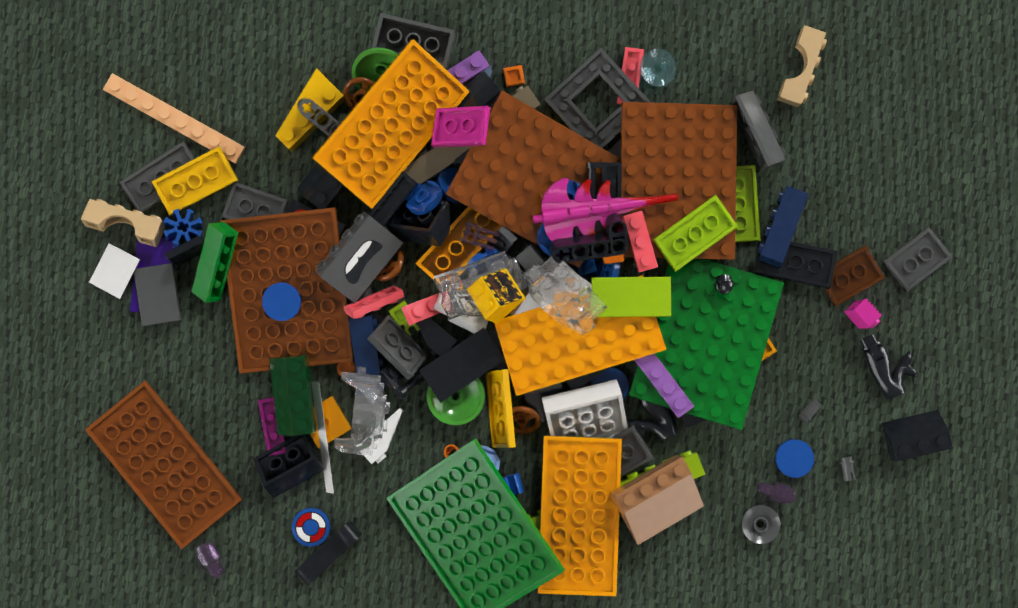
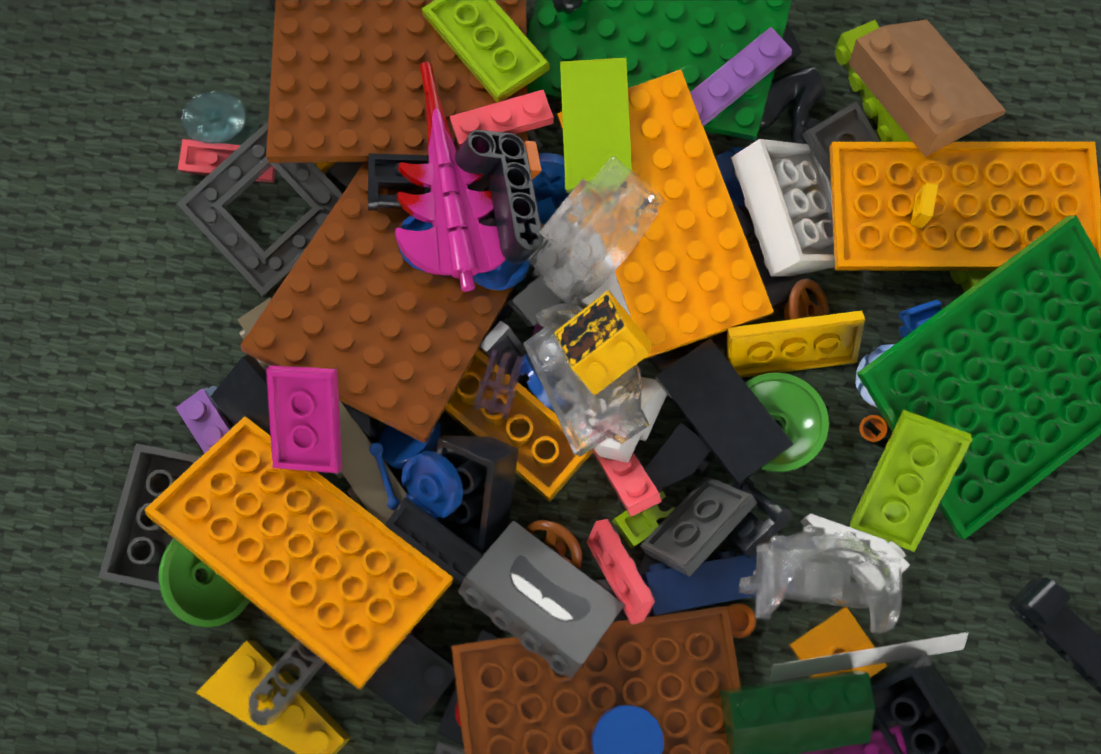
camera: 85 degrees left, 10 degrees down
(311, 527) = (1028, 674): tile -> none
(355, 96) = (258, 615): dark orange piece -> none
(417, 466) = (910, 480): none -> lime tile
(447, 166) = (377, 450): none -> blue hinge
(514, 76) = (222, 349): orange tile -> none
(575, 487) = (924, 205): none -> yellow tile

